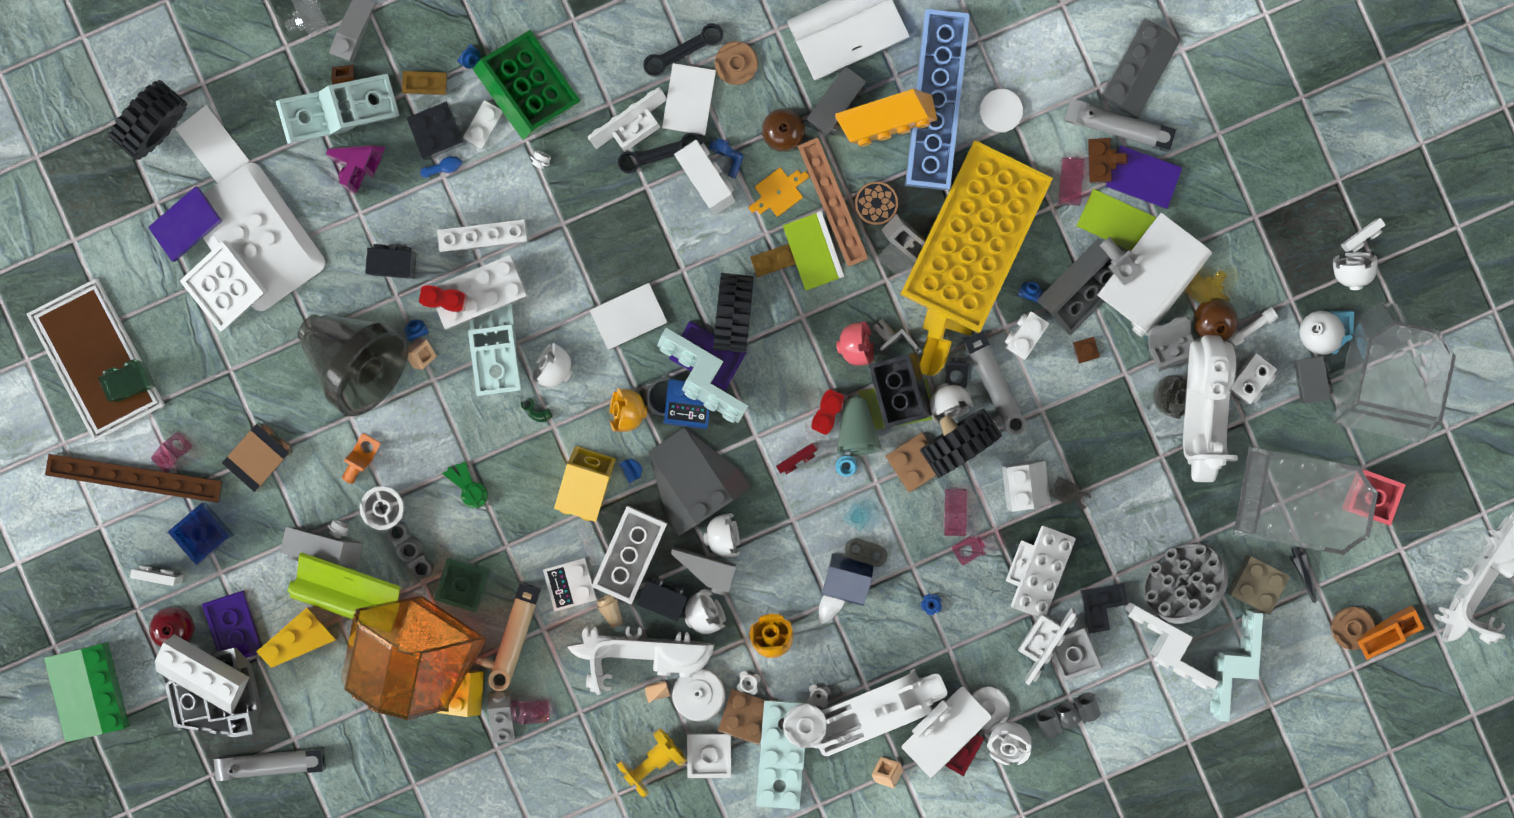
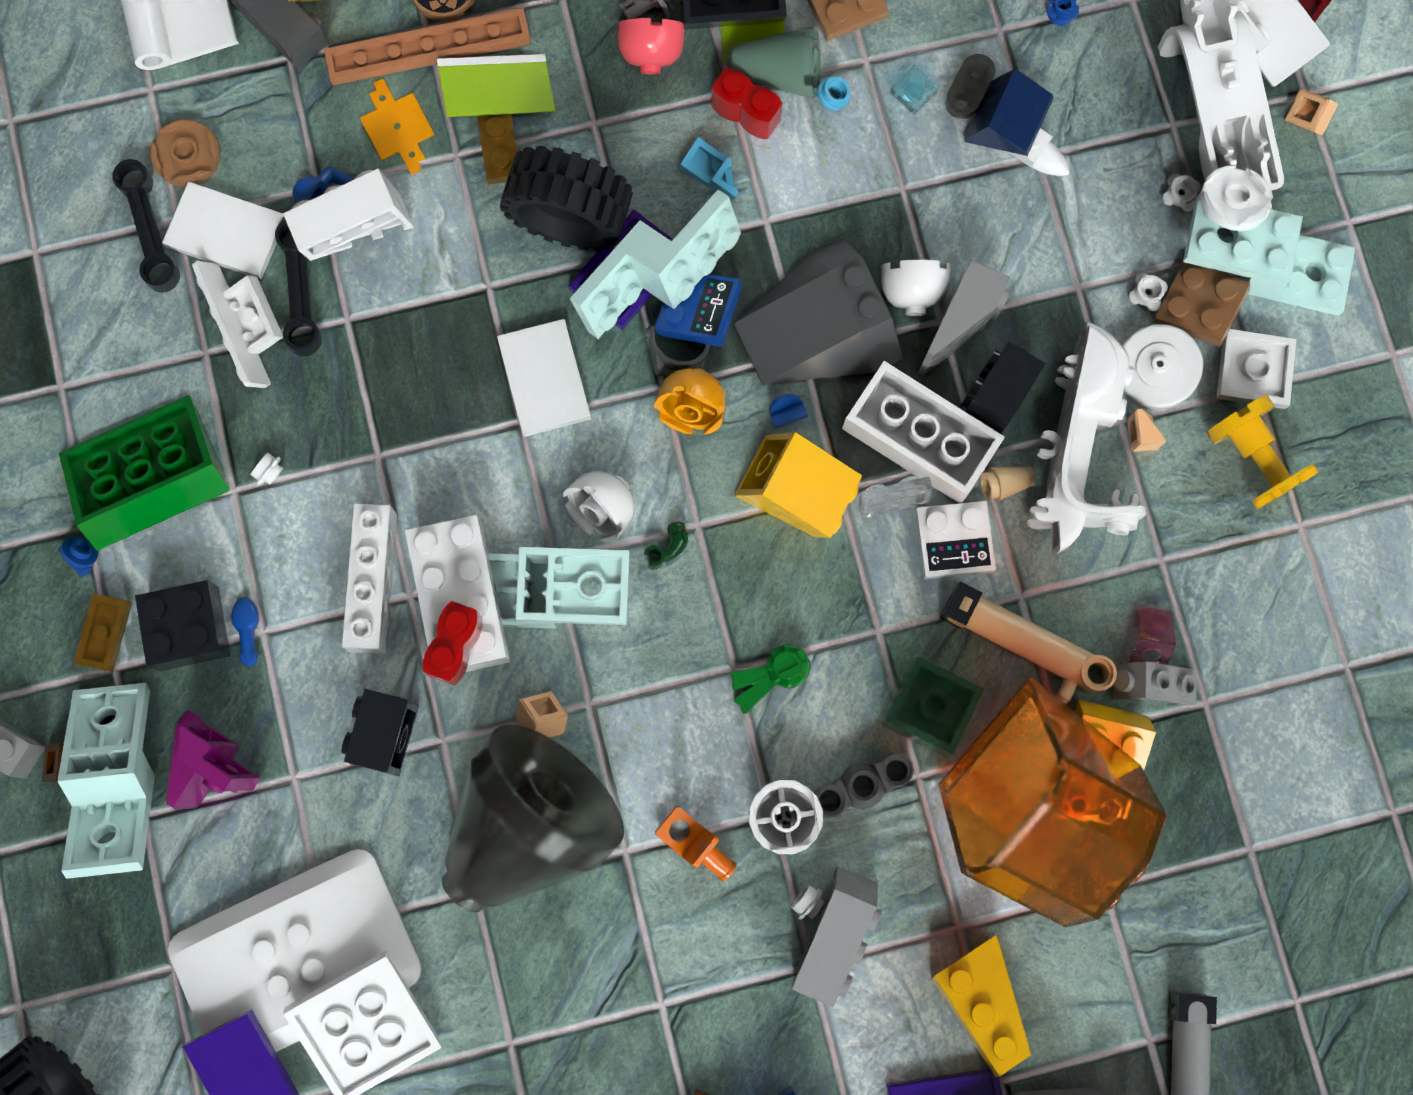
camera: 85 degrees left, 10 degrees down
(212, 144) = (124, 1009): white sticker -> none
(257, 456) = (664, 1020): medium nougat panel -> none
(338, 587) = (911, 911): lime door -> none
(415, 329) = (499, 713): blue plate -> none
(483, 124) = (192, 551): white plate -> none
(703, 613) = (1036, 333): white cylinder -> none
(771, 635) = (1082, 236): light orange cylinder -> none
(778, 139) = (302, 100): reddish brown cylinder -> none
(784, 395) = (709, 168): none -> medium azure slope
(804, 454) = (806, 151): dark red plate -> none

